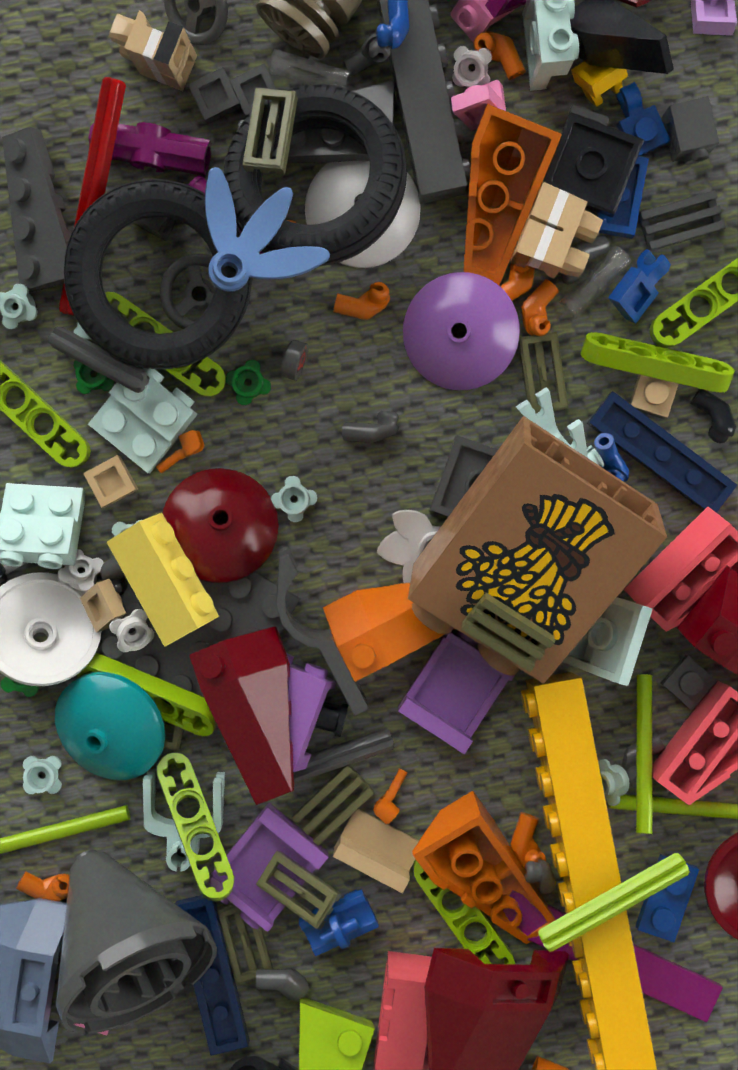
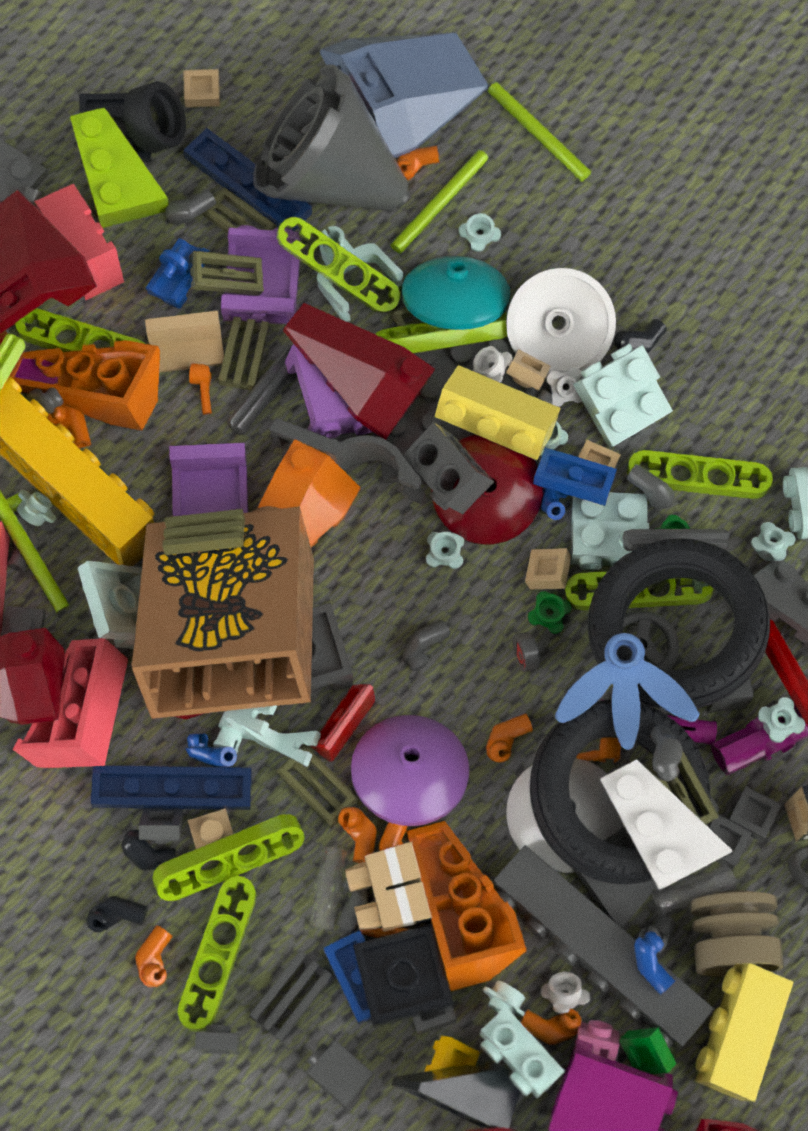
camera: 135 degrees right, 20 degrees down
(78, 417) = (655, 489): none -> dark grey arm
(139, 476) = (574, 476): none -> blue plate
(144, 149) = (776, 730): none -> light aqua plate
(175, 474) = (551, 504): none -> blue arm
(191, 444) = (557, 535): orange hand -> none
(222, 417) = (548, 569): none -> tan plate
(237, 557) = (451, 463): none -> dark grey brick
(259, 159) = (667, 753): none -> dark grey arm
(312, 105) = (661, 826): none -> white wing
(332, 718) = (292, 409): black bush -> none
(409, 540) = (331, 580): white plate -> none
(472, 103) = (533, 967): bright pink bracket -> none
(486, 410) = (344, 720): none -> red slope
(523, 93) = (505, 996): none -> light aqua plate
(637, 287) = (286, 906): blue plate -> none
(640, 121) = (382, 1050): blue plate -> none
(693, 427) = (160, 825): none -> dark grey plate

